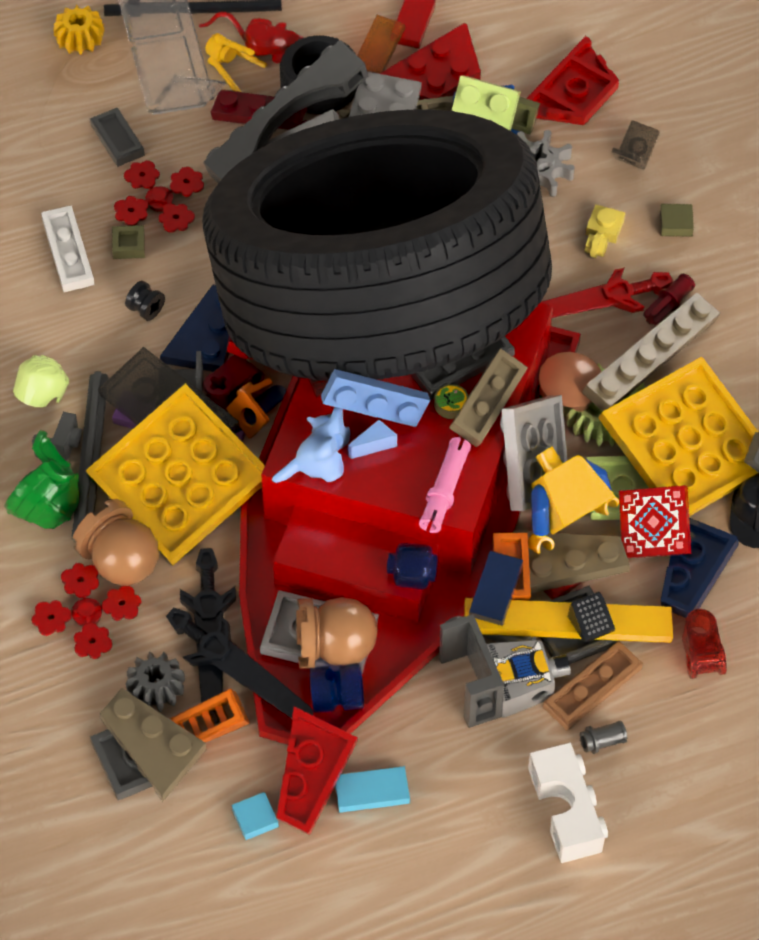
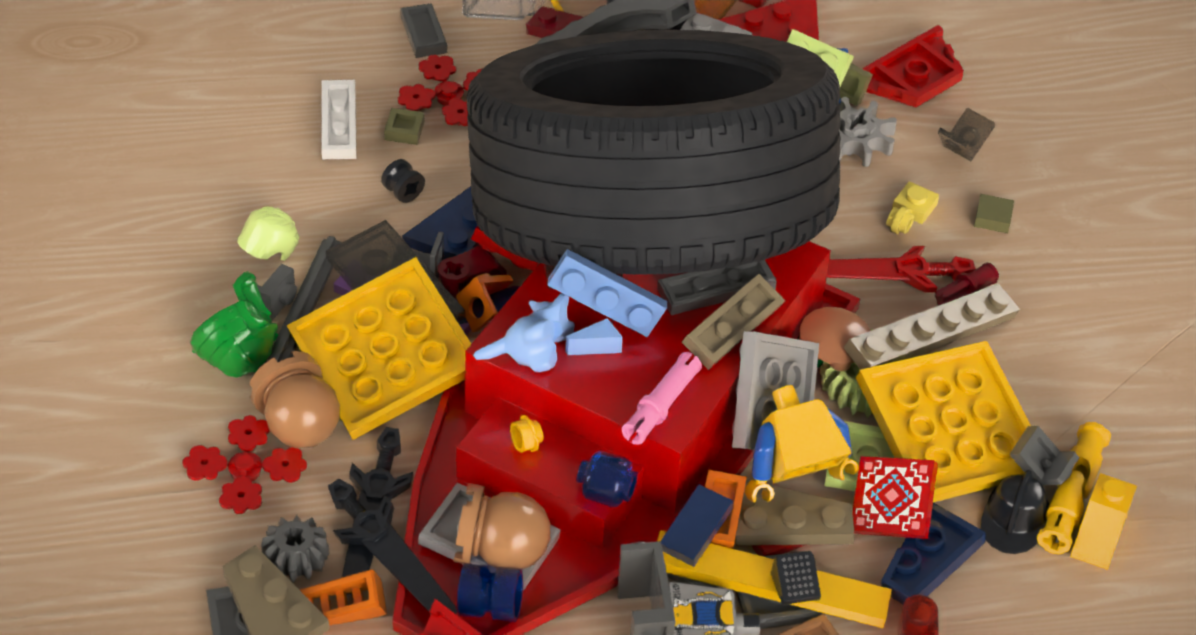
camera: 10 degrees right, 10 degrees down
(331, 538) = (526, 434): none -> yellow plate
(449, 400) = (689, 316): tile -> none

